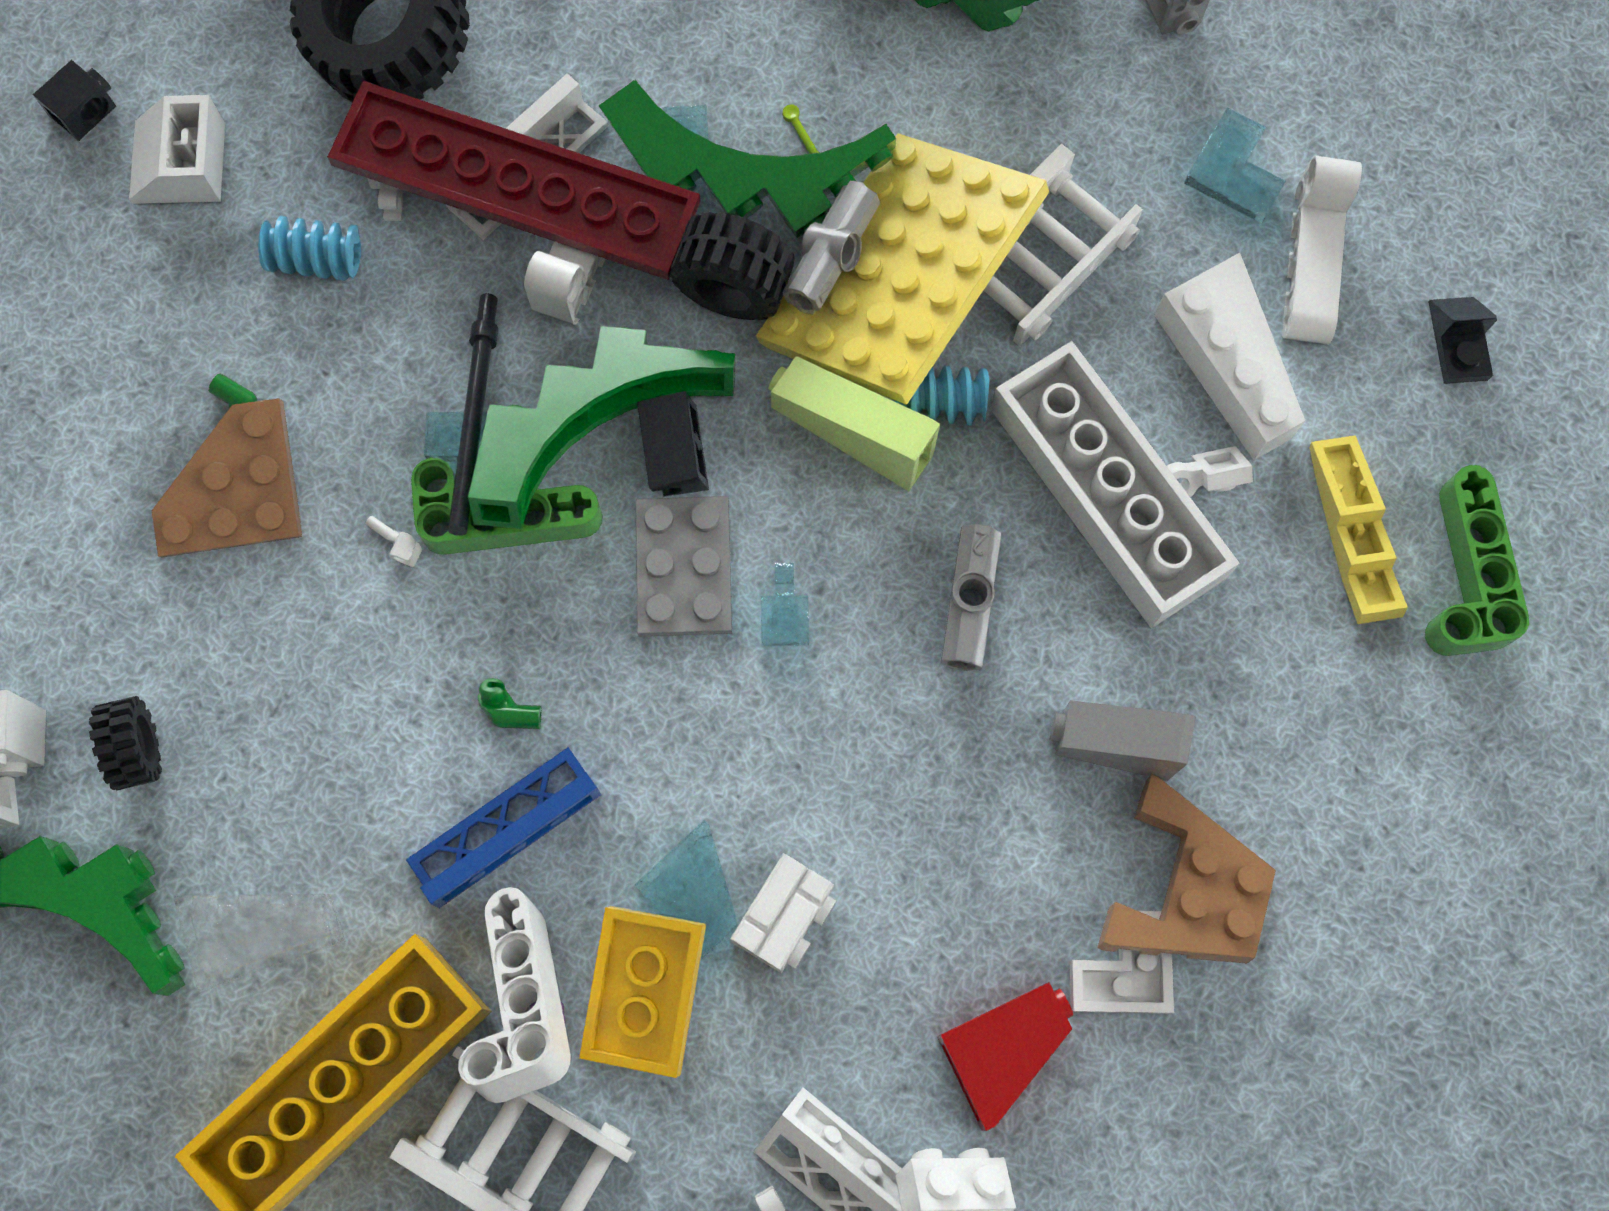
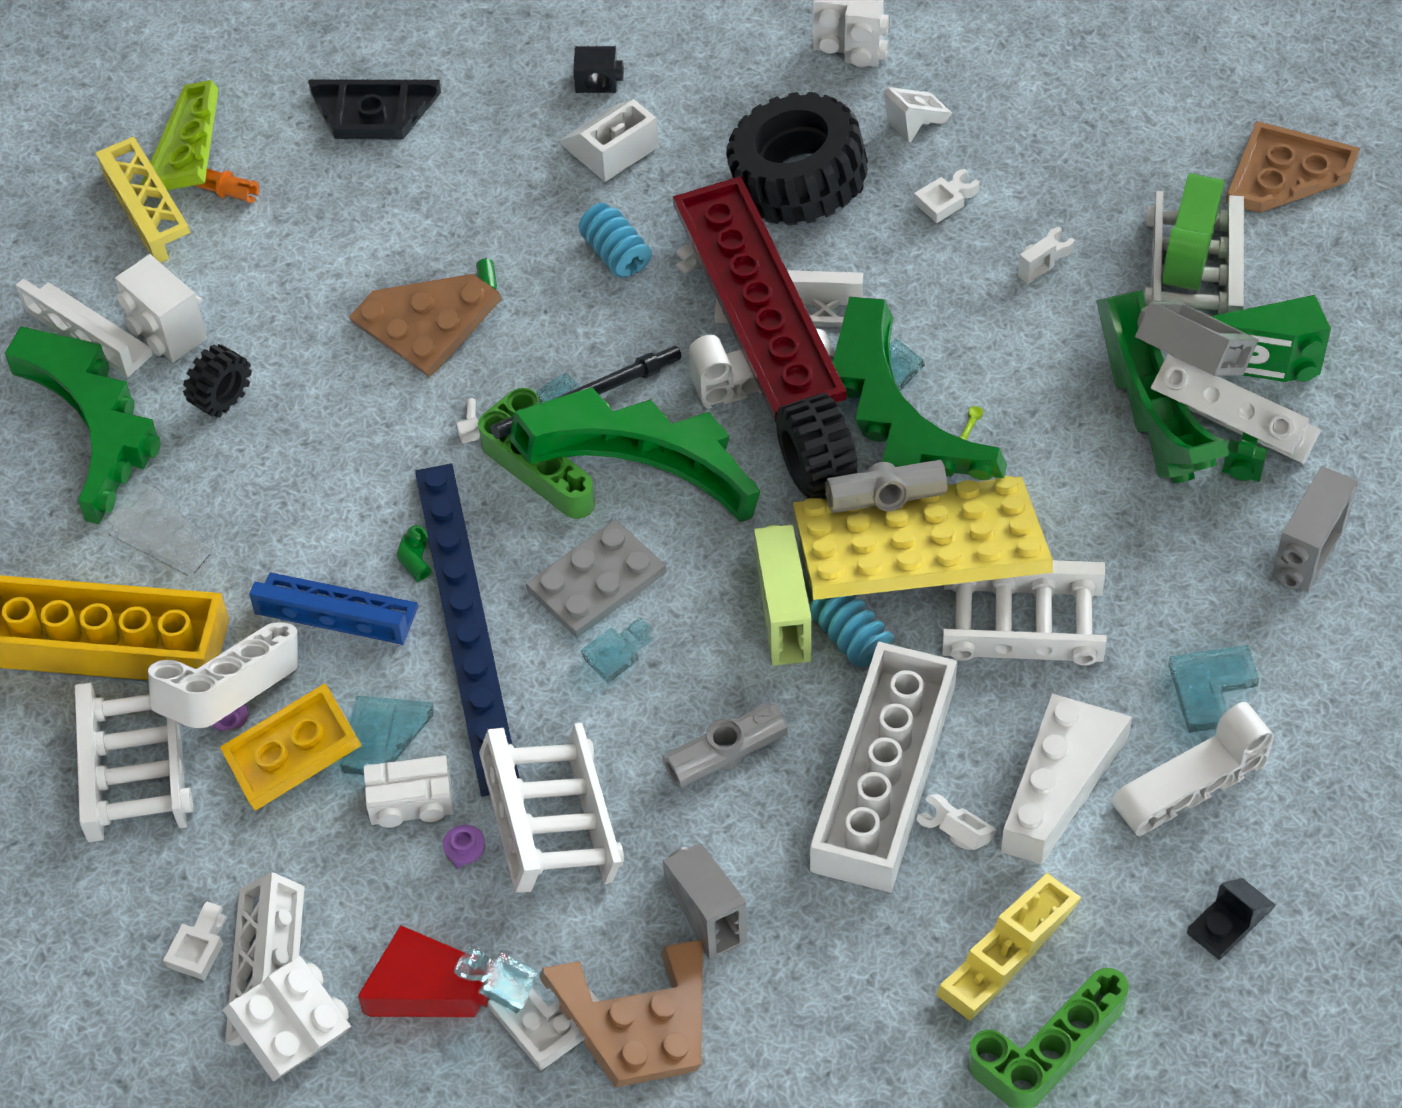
camera: 55 degrees right, 20 degrees down
(635, 722) = (462, 610): none -> dark blue plate
(672, 444) = (671, 511): black hinge -> none
(888, 908) = (463, 845): none -> medium lavender plate
(909, 846) = (518, 827): none -> white fence
(1076, 982) = (503, 977): none -> clear light blue plate

